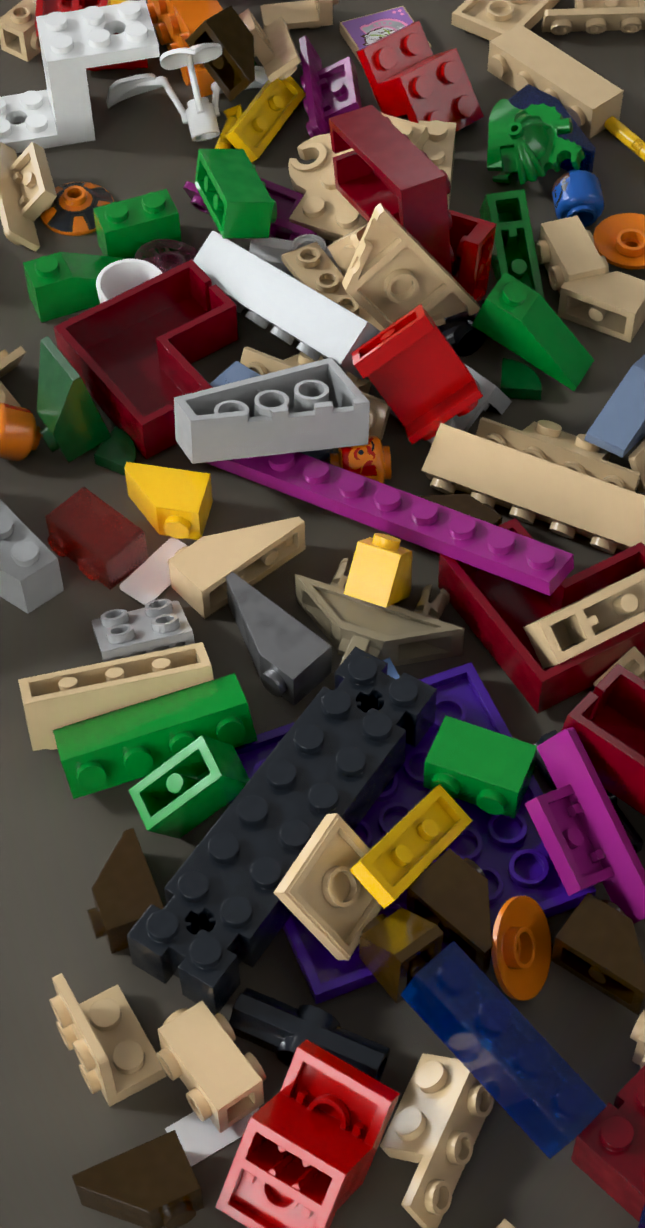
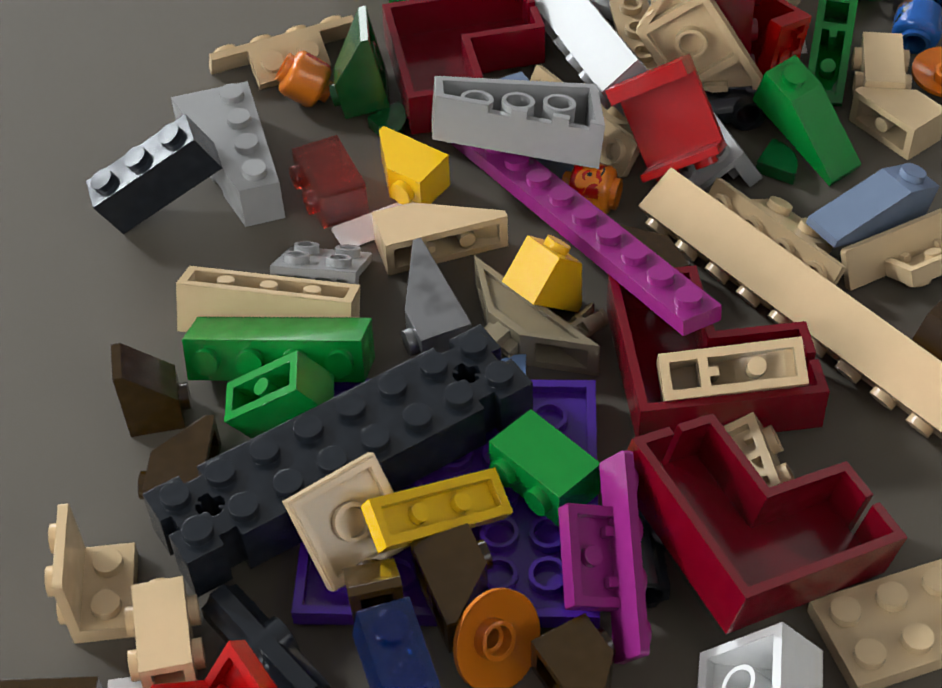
camera: 25 degrees right, 5 degrees down
(48, 827) = (148, 391): none -> dark brown slope

